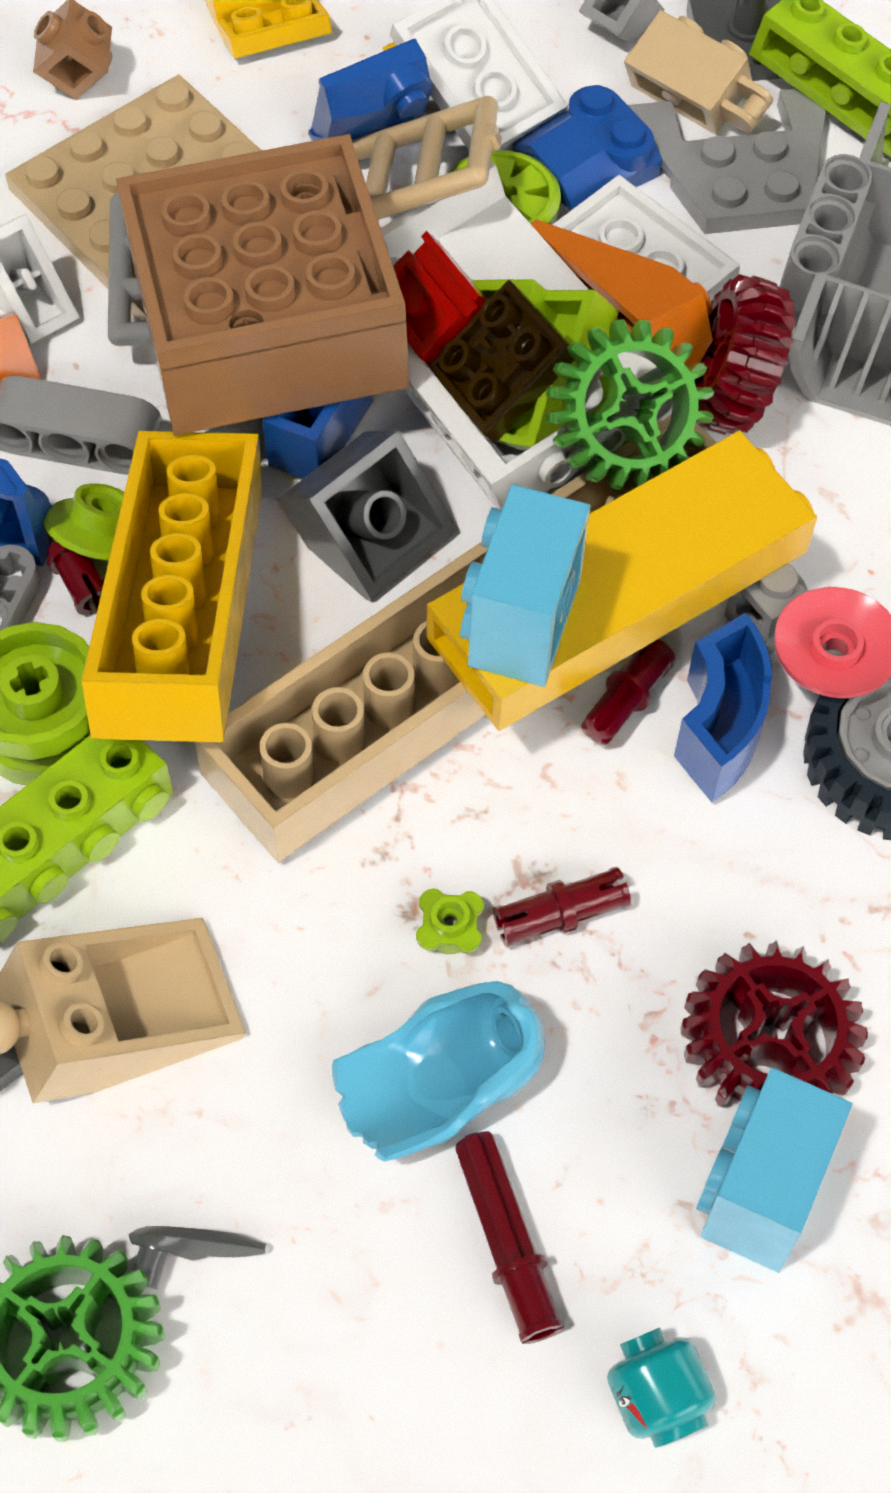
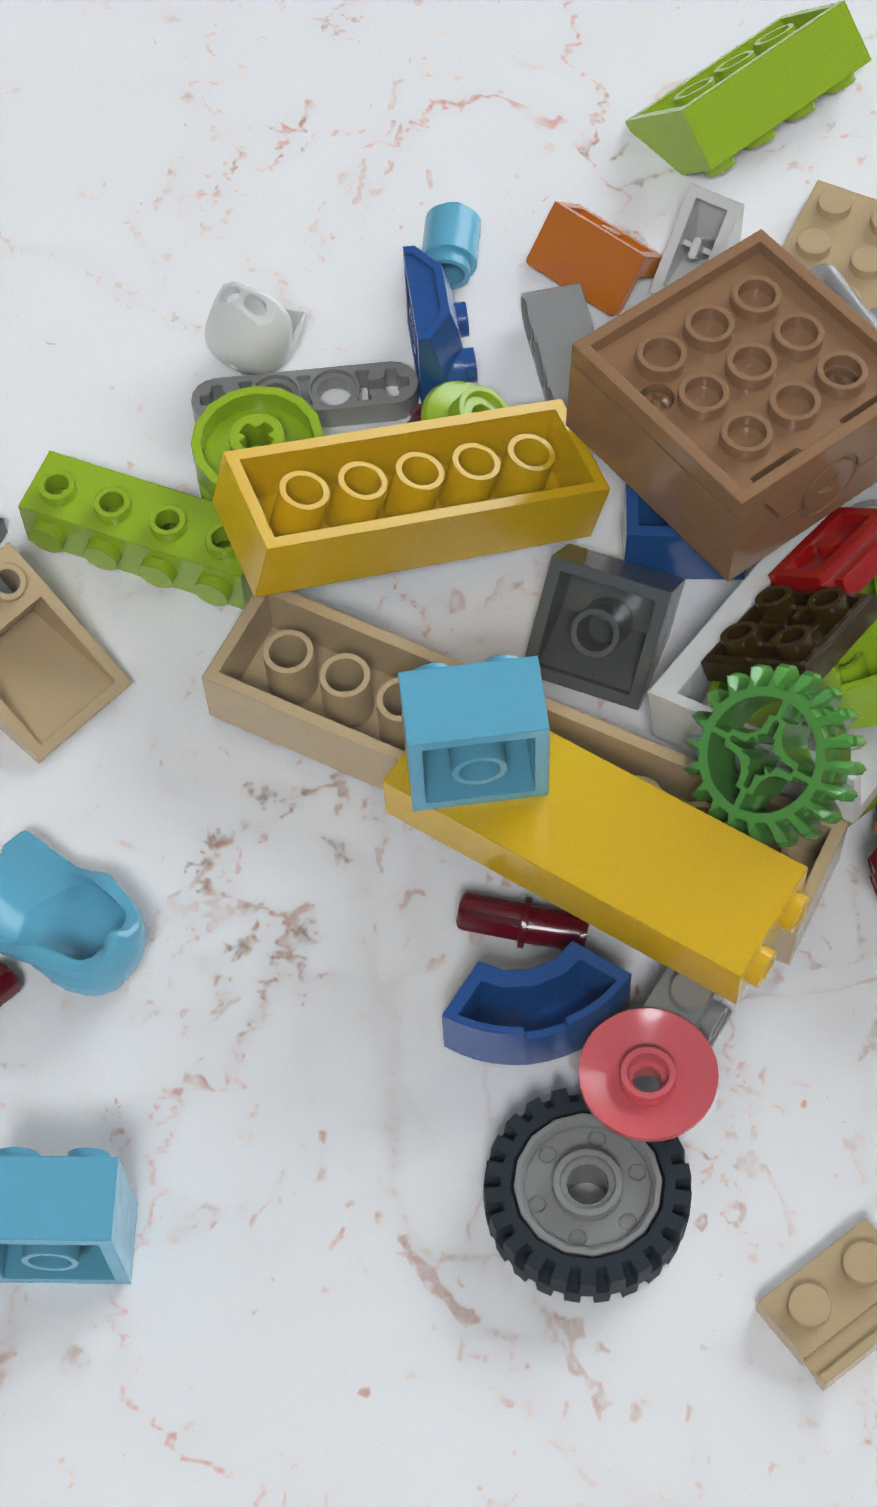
camera: 70 degrees right, 0 degrees up
(445, 938) = (216, 887): lime plate -> none
(561, 906) = (268, 956): dark red pin -> none
(750, 988) = (238, 1135): dark red gear -> none

